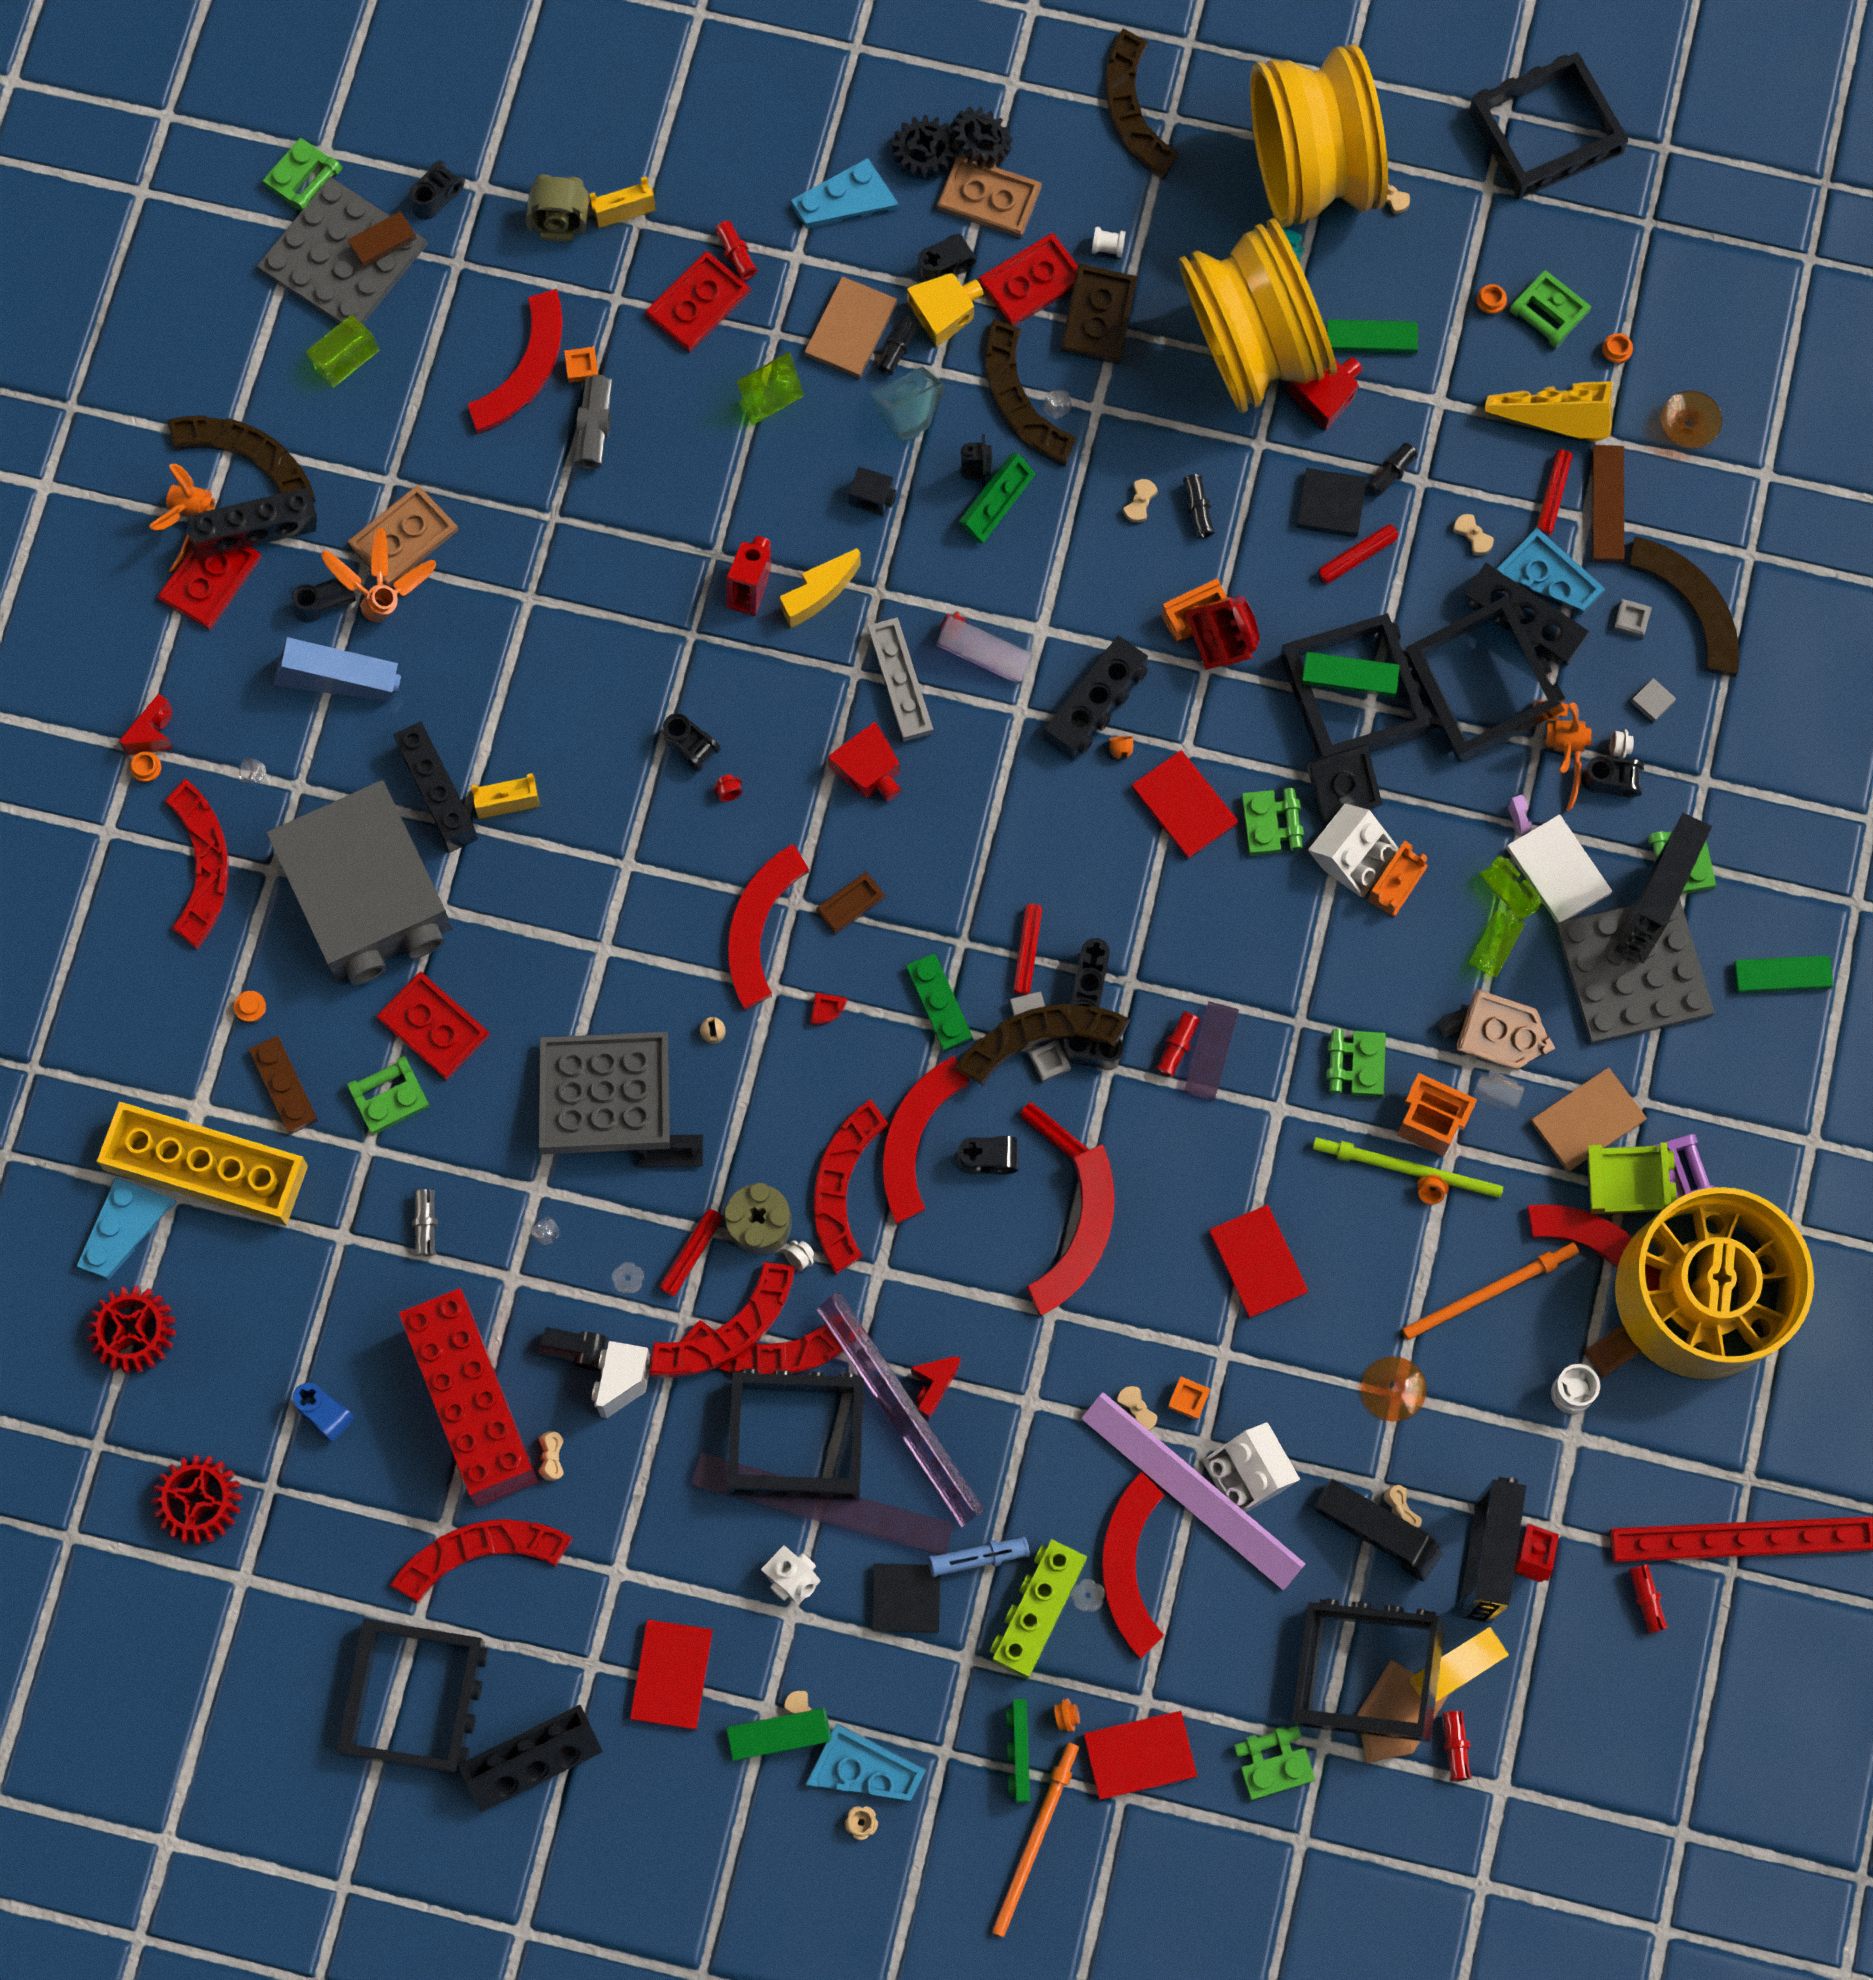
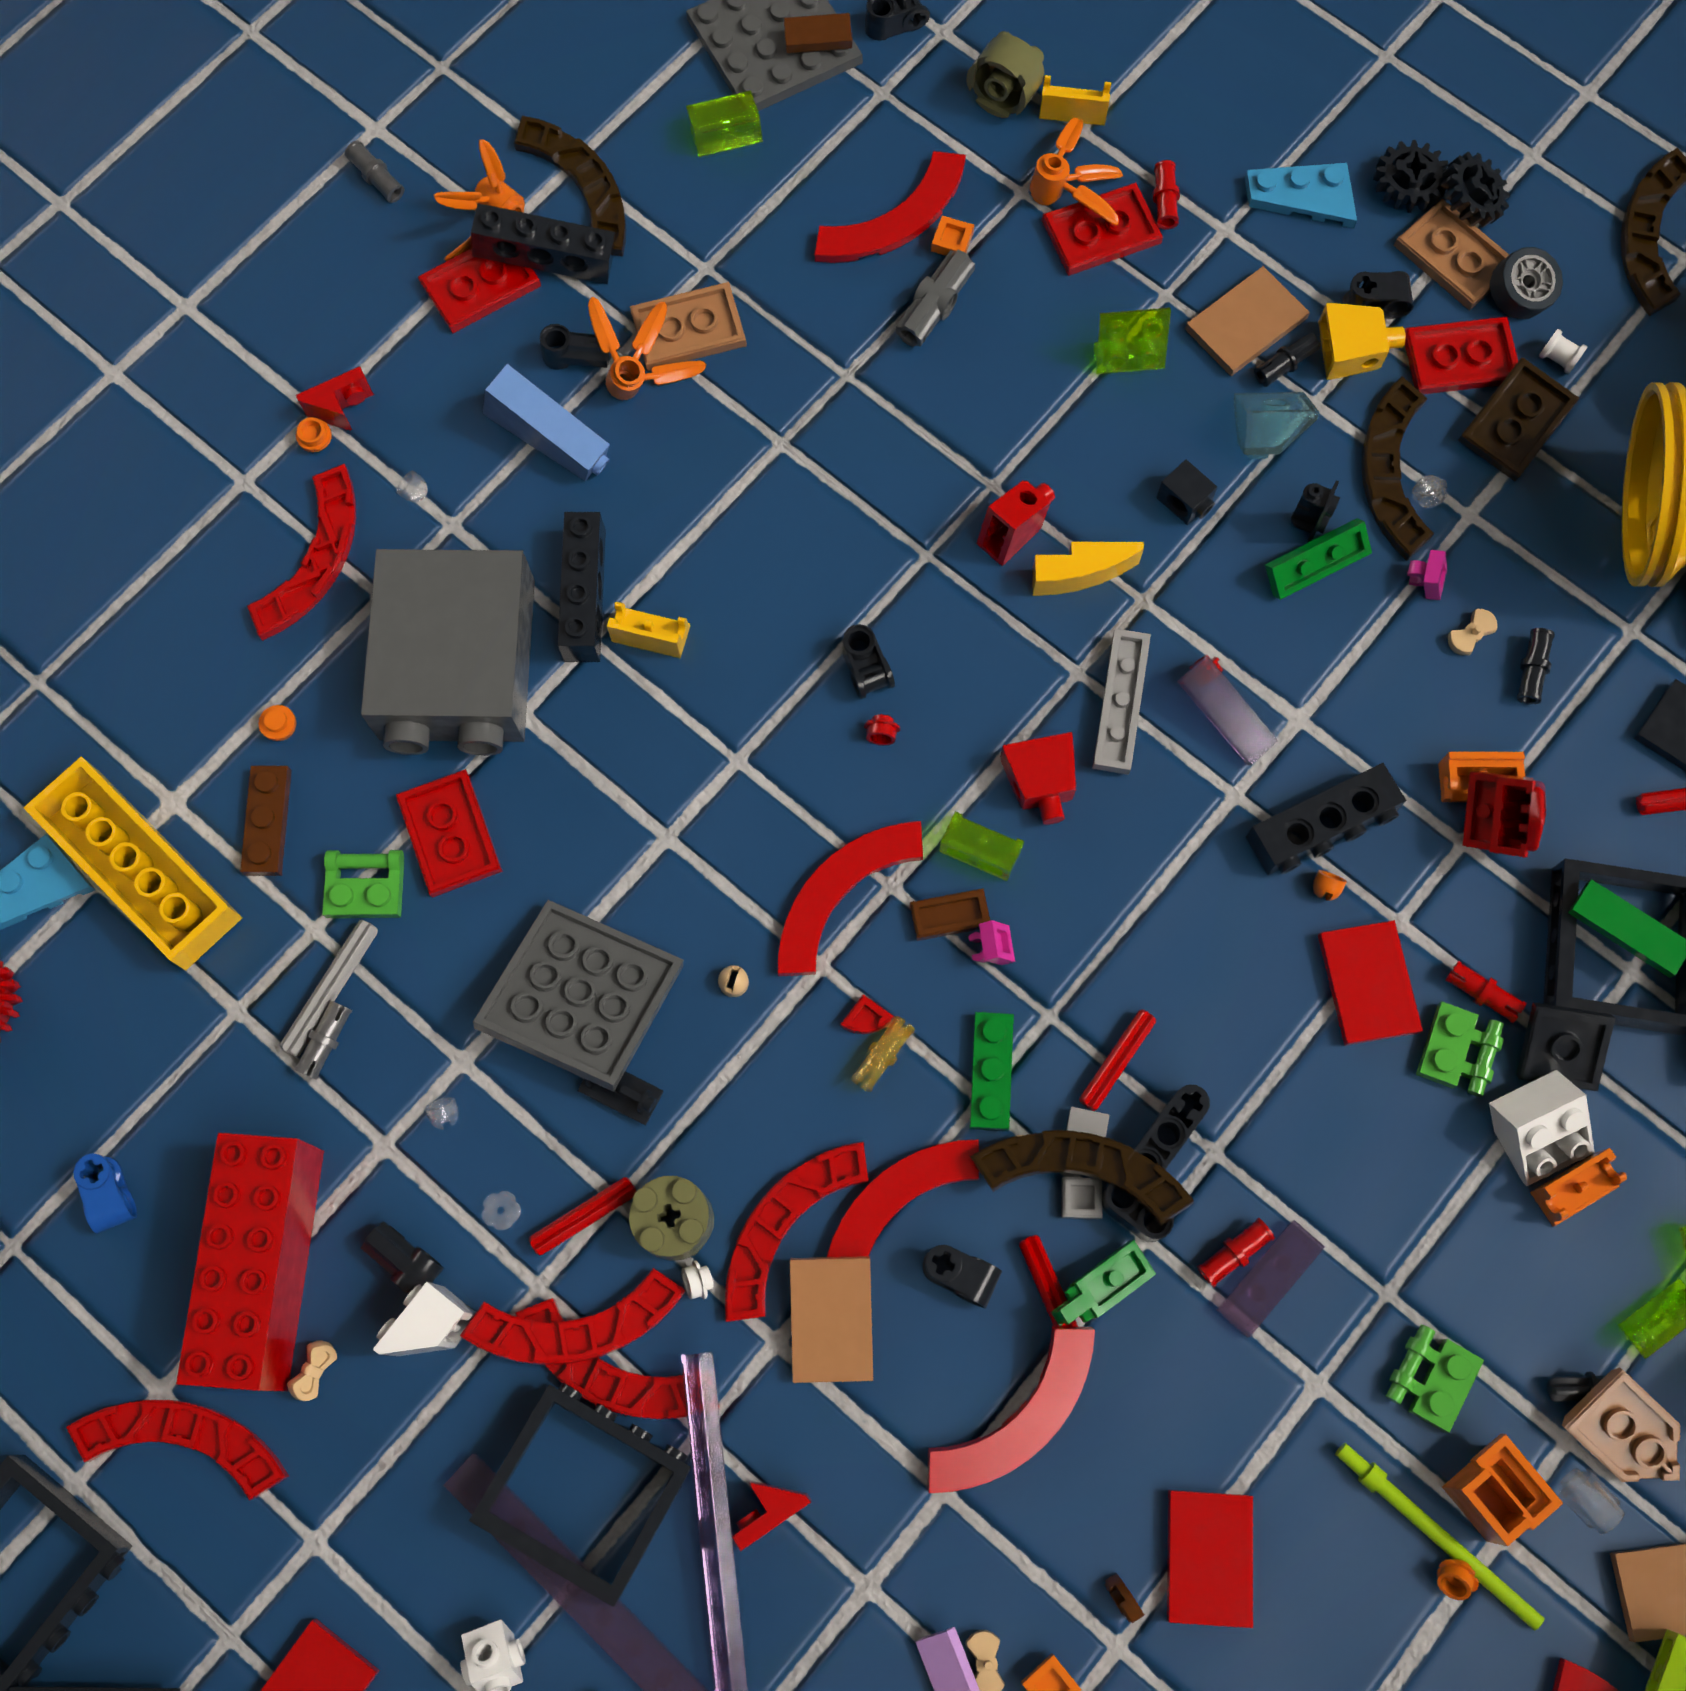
camera: 30 degrees right, 0 degrees up
(69, 524) = (374, 171): none -> flat silver pin
(406, 1184) = (329, 987): none -> light grey axle
(637, 274) = (1053, 173): none -> orange plant
(848, 841) = (980, 847): none -> clear neon green hinge
(852, 1028) = (882, 1054): none -> clear yellow pin
(896, 907) = (995, 943): none -> dark pink tile
(911, 1232) = (831, 1319): none -> medium nougat tile
(1060, 186) = (1524, 269): none -> wheel
(1088, 471) = (1429, 574): none -> dark pink tile
(1095, 1111) = (1105, 1285): none -> hinge
(1212, 1317) = (1123, 1598): none -> reddish brown tile
(1270, 770) = (1485, 991): none -> red pin

